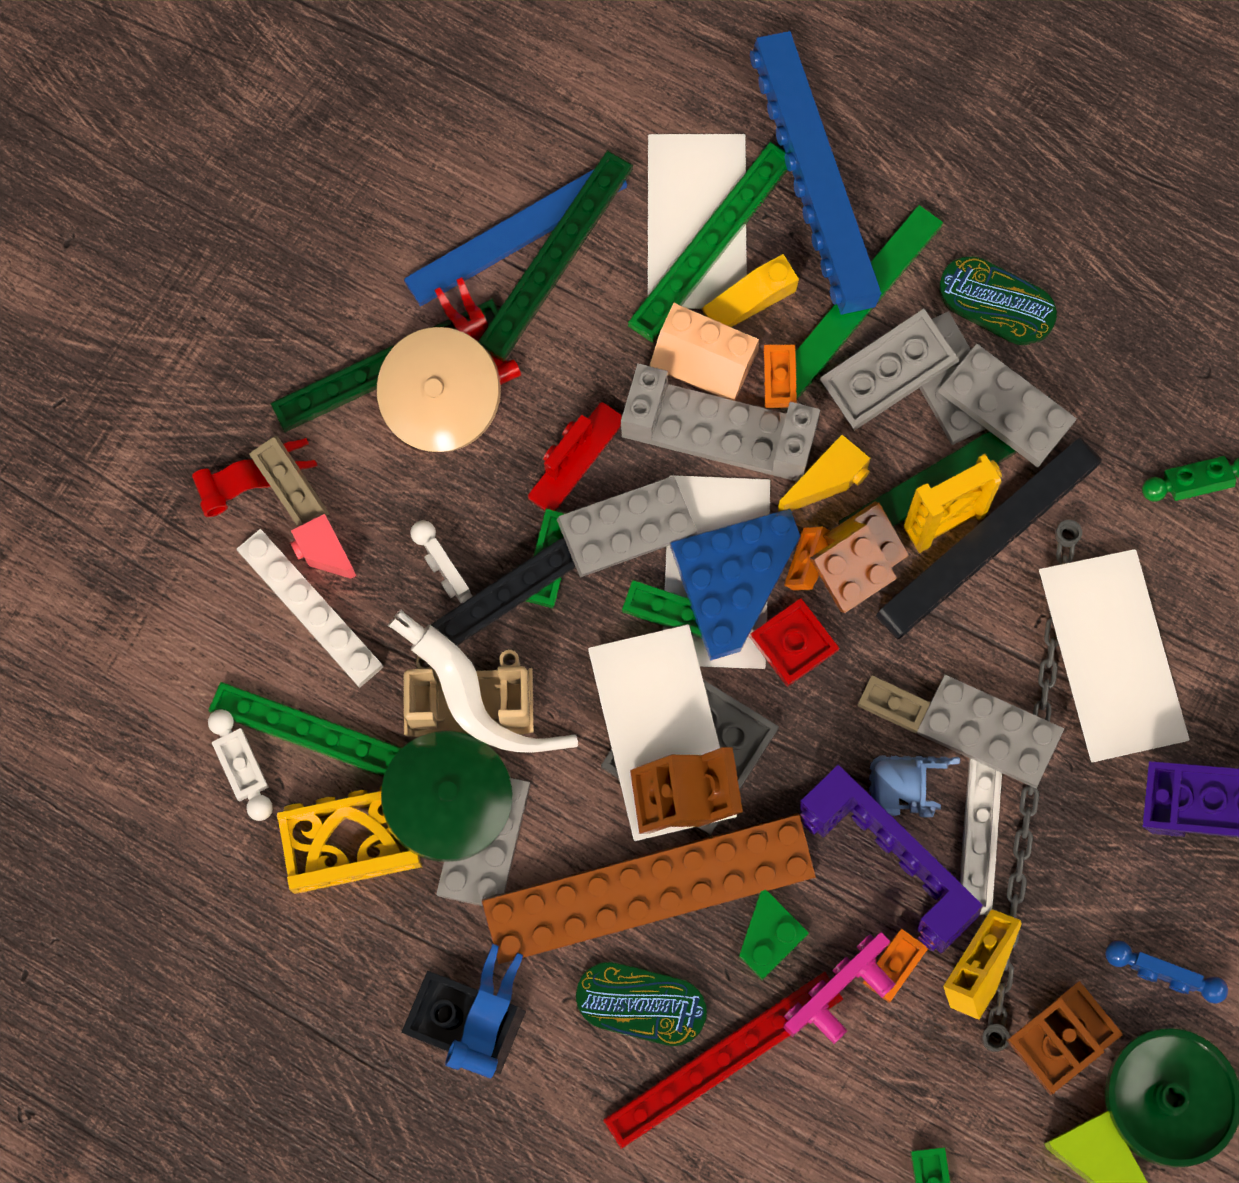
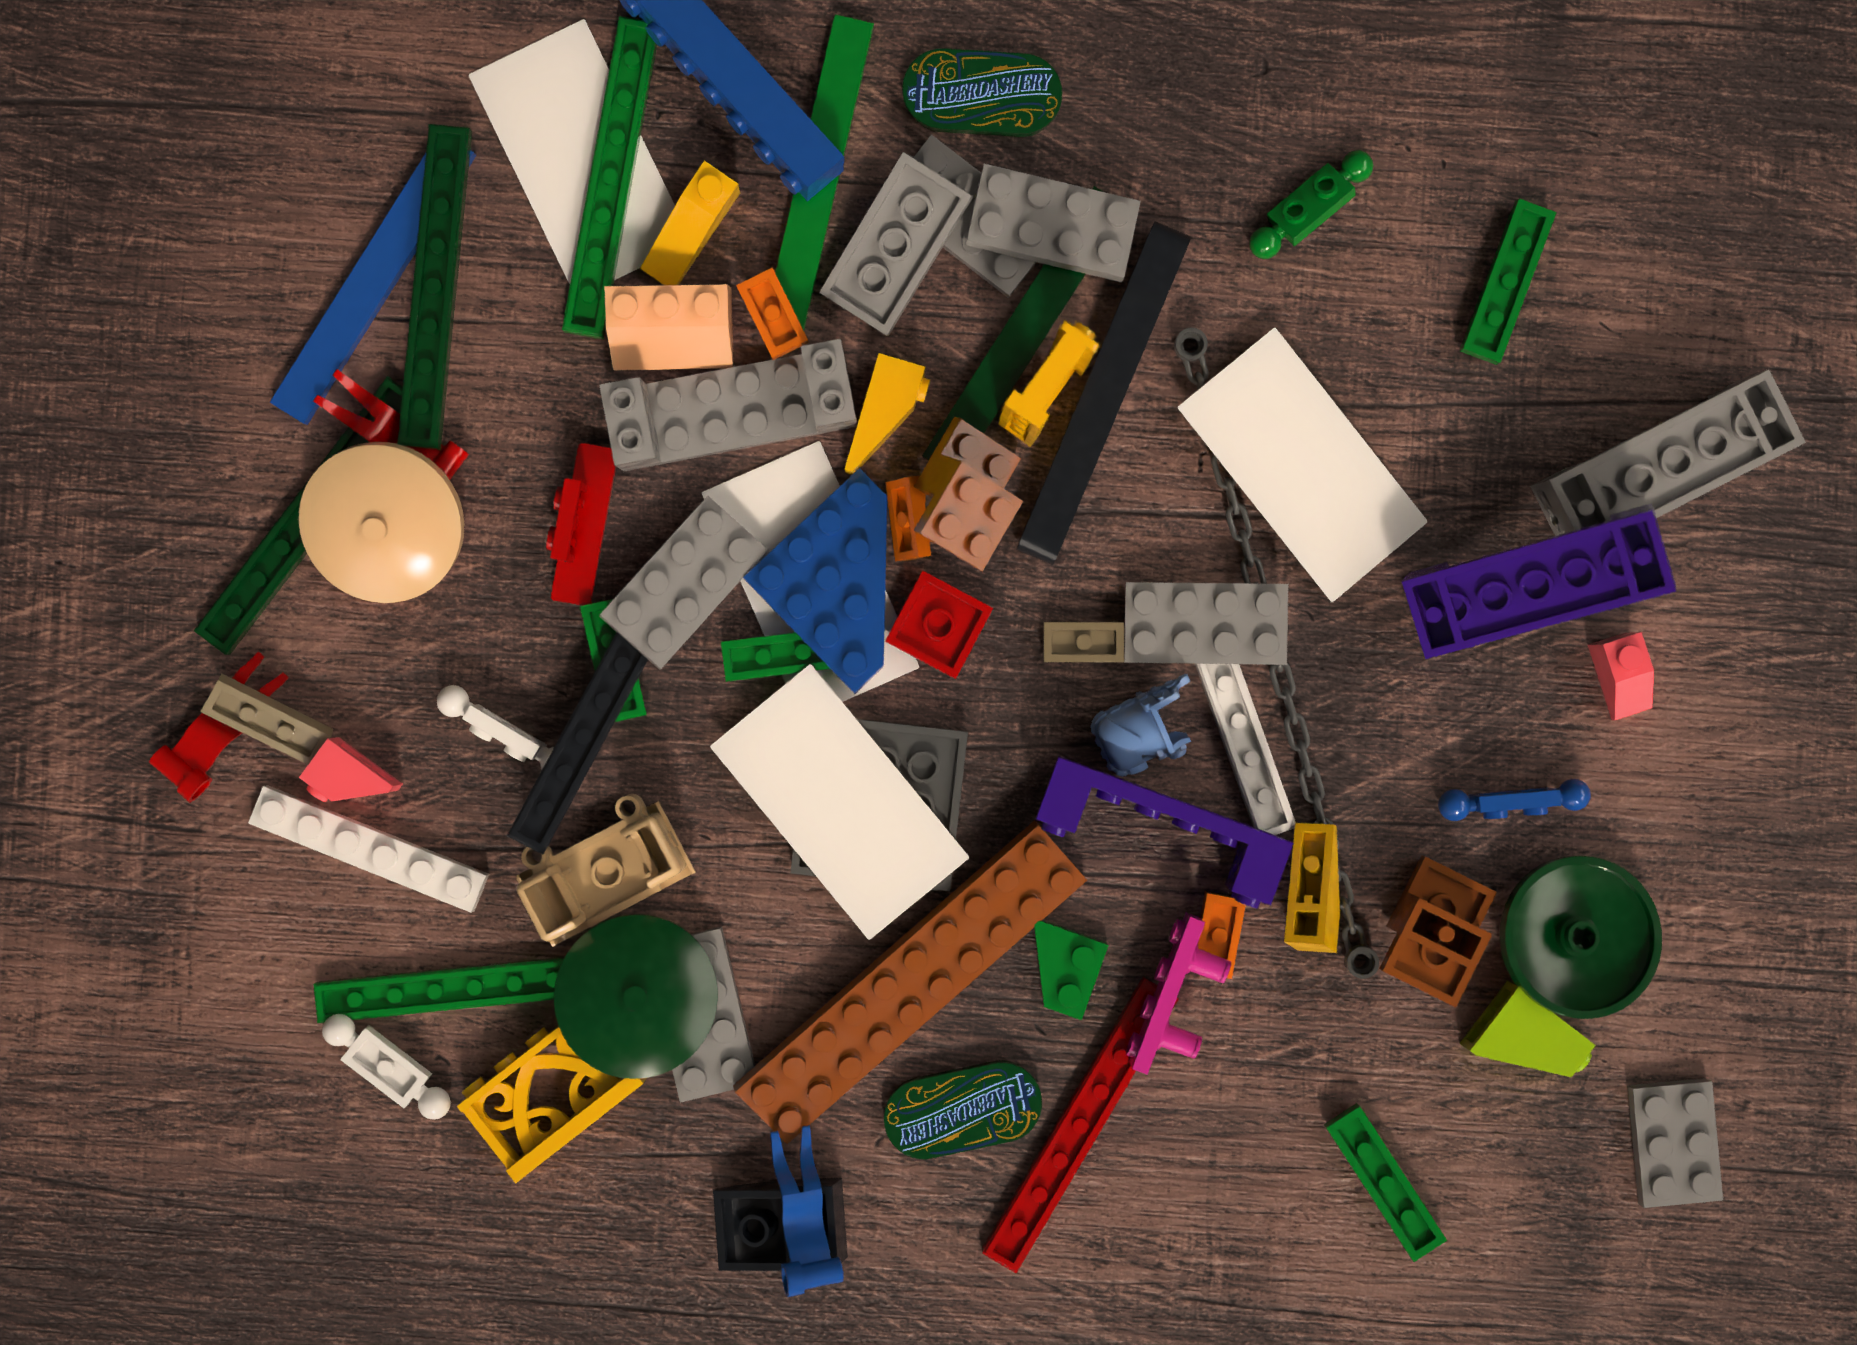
camera: 30 degrees left, 15 degrees up
(462, 690) = (593, 872): white animal -> none
(686, 790) = (902, 865): dark orange bracket -> none

